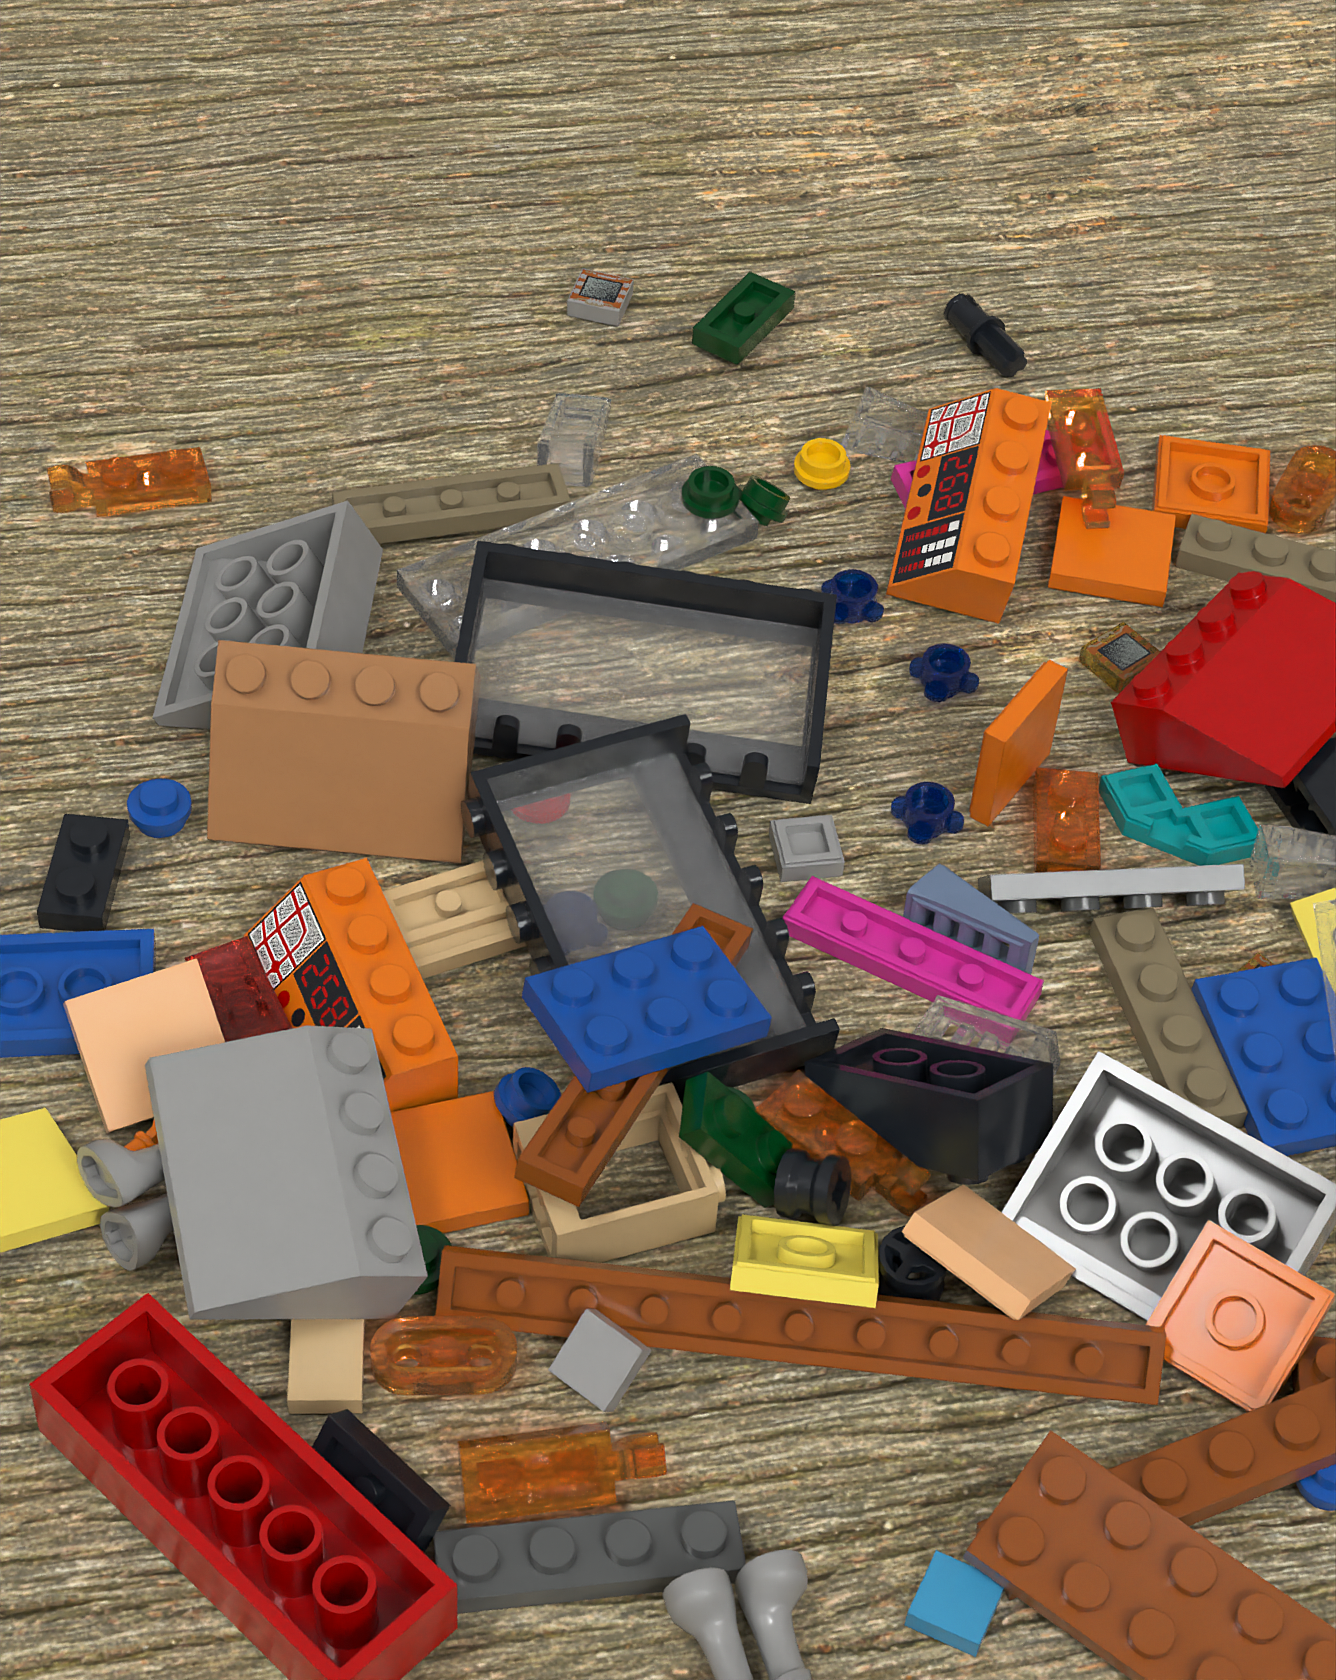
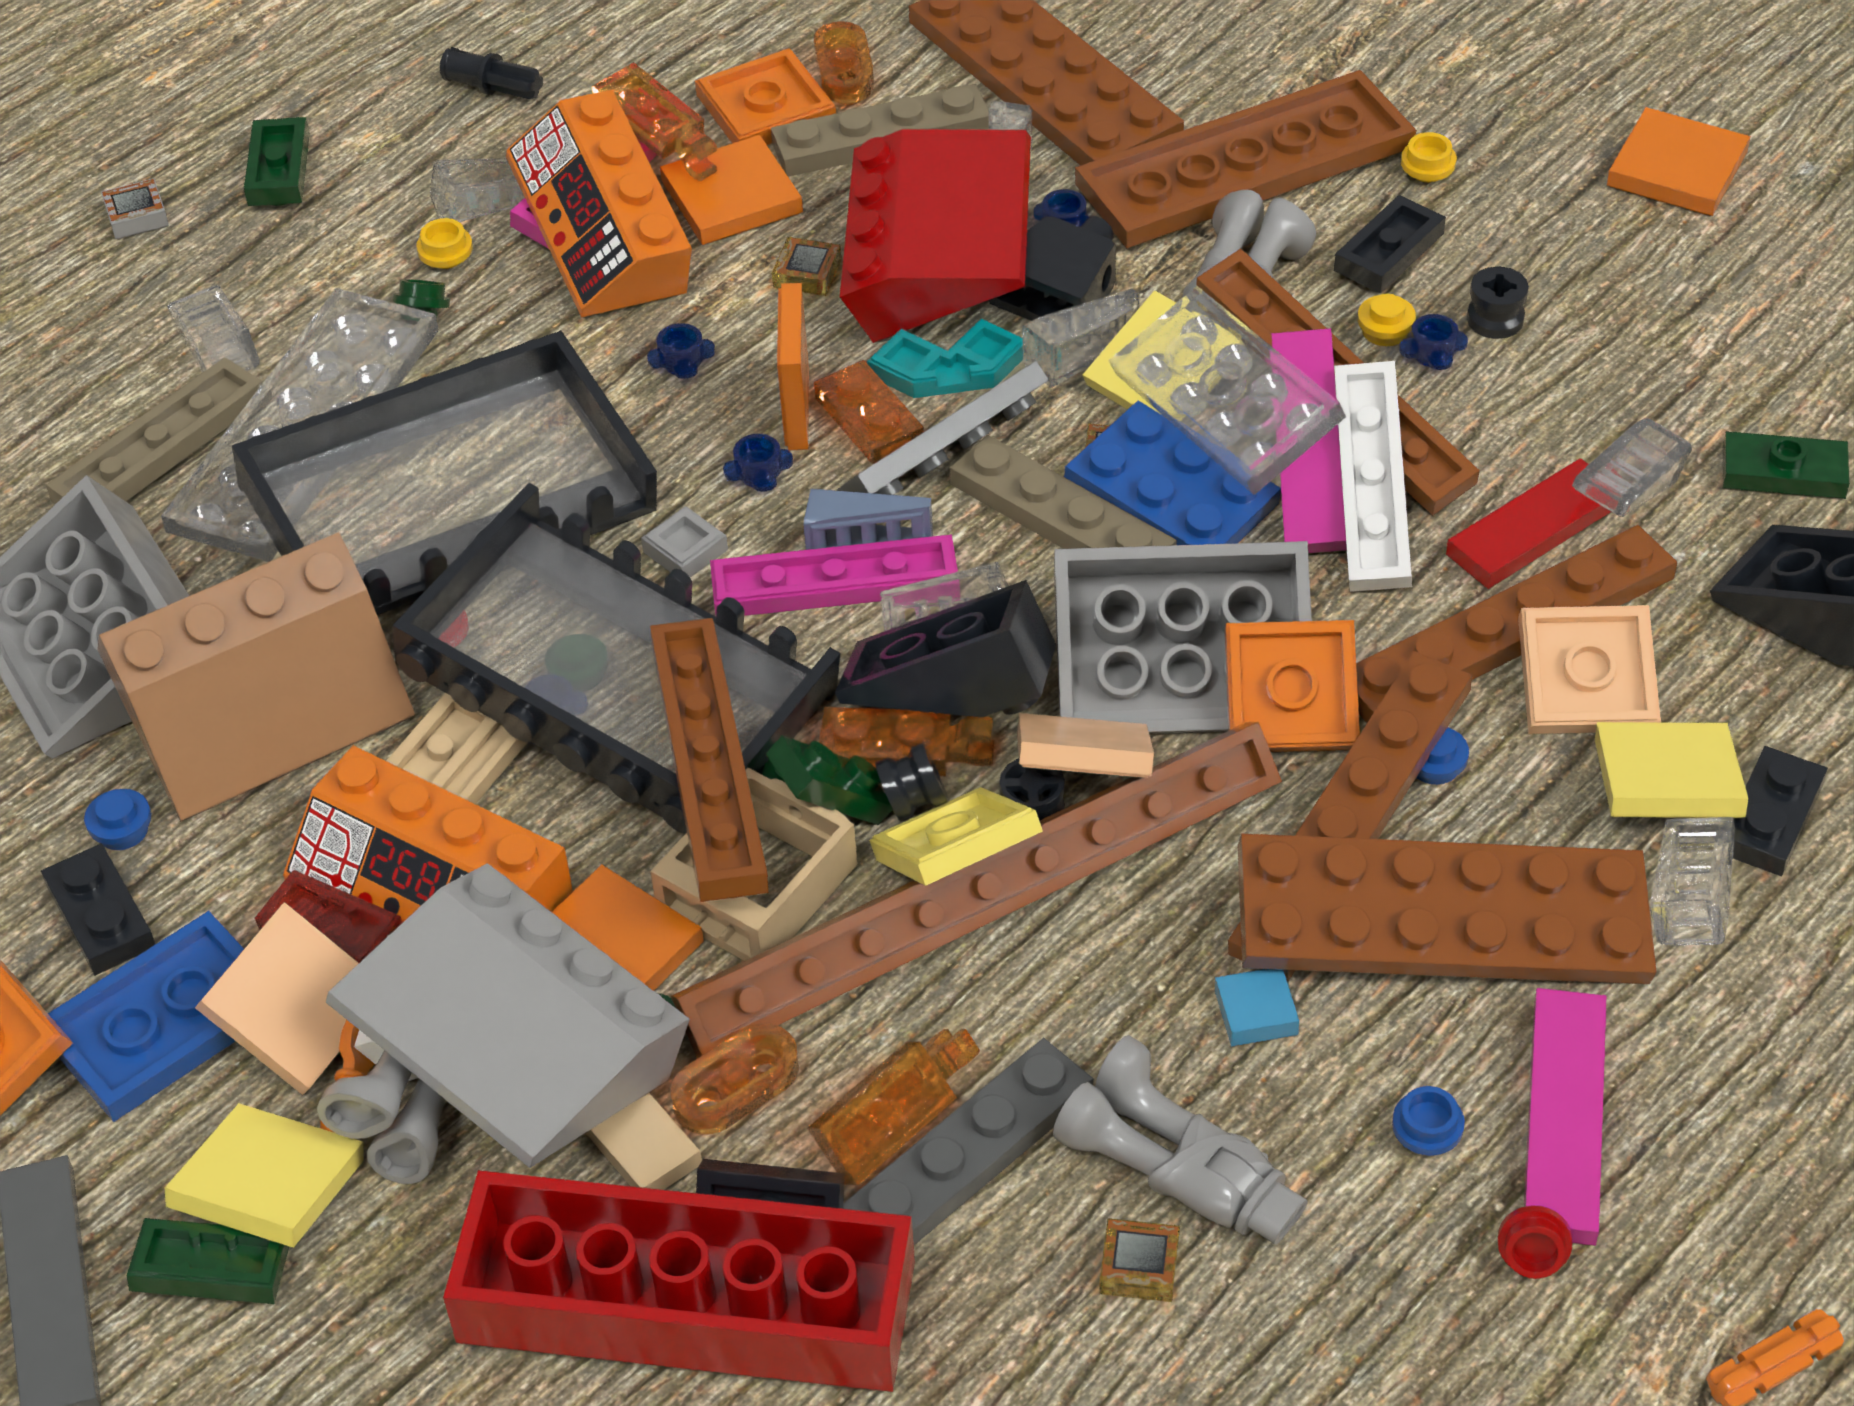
camera: 30 degrees left, 0 degrees up
(525, 1095) = (633, 853): blue plate -> none
(599, 1360) = (858, 1004): light grey tile -> none
(645, 1008) = (692, 718): blue plate -> none
(710, 493) = (381, 310): dark green plate -> none
(855, 597) = (560, 319): clear blue plate -> none

